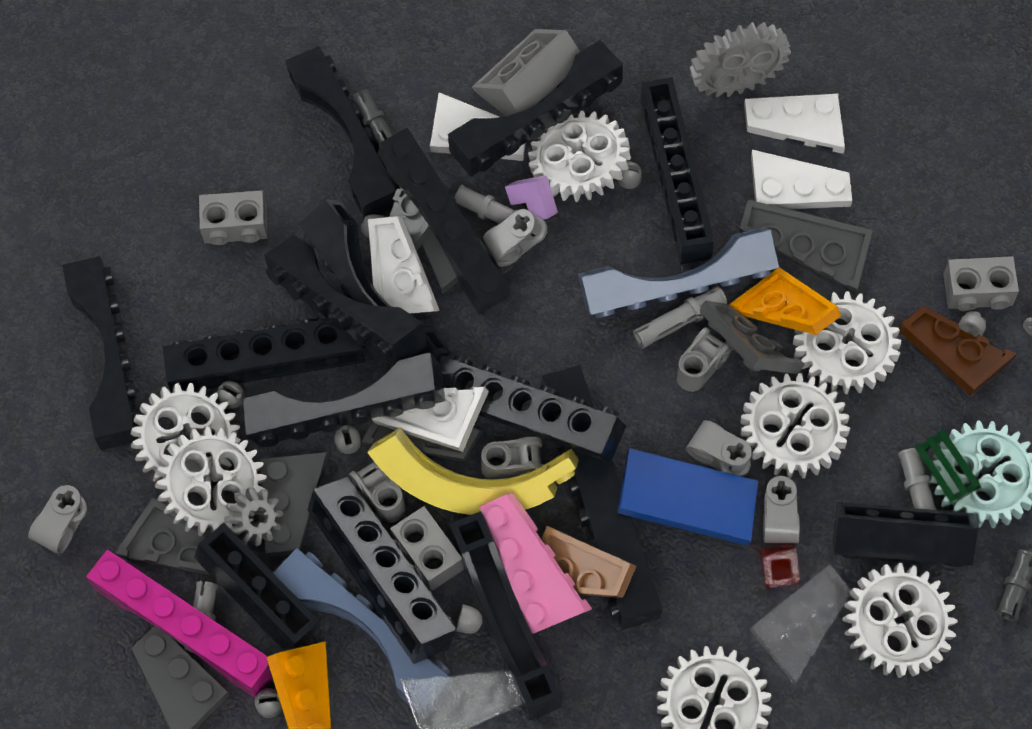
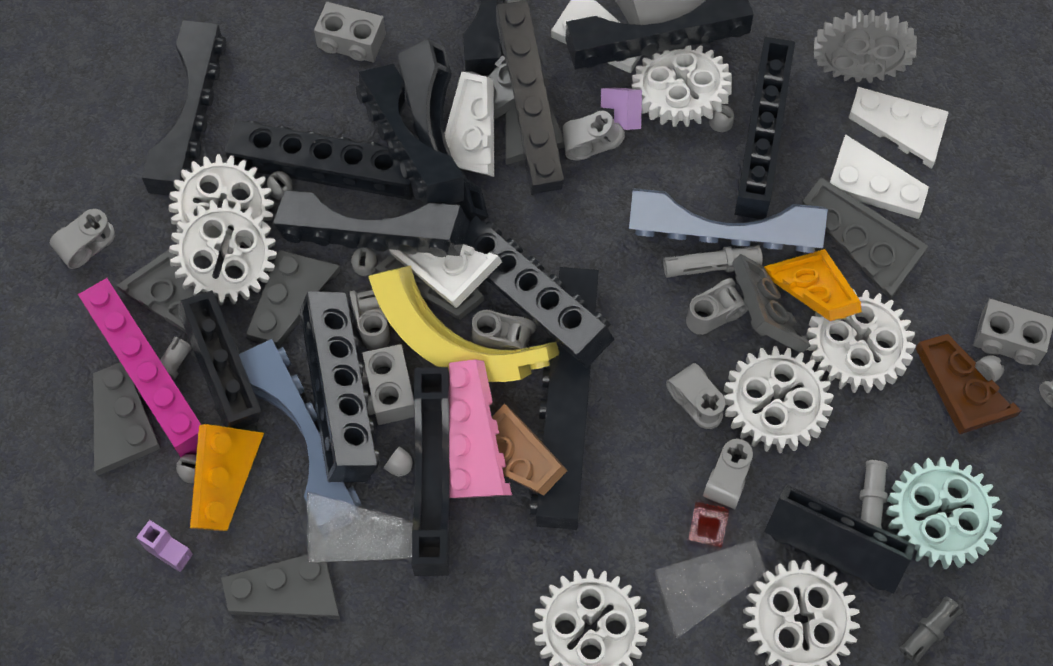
camera: 20 degrees right, 0 degrees up
(257, 502) = (243, 307): light grey gear -> none
(483, 205) = (576, 100): light grey pin -> none
(688, 497) = (648, 427): blue tile -> none
(931, 443) = (902, 463): dark green tile -> none

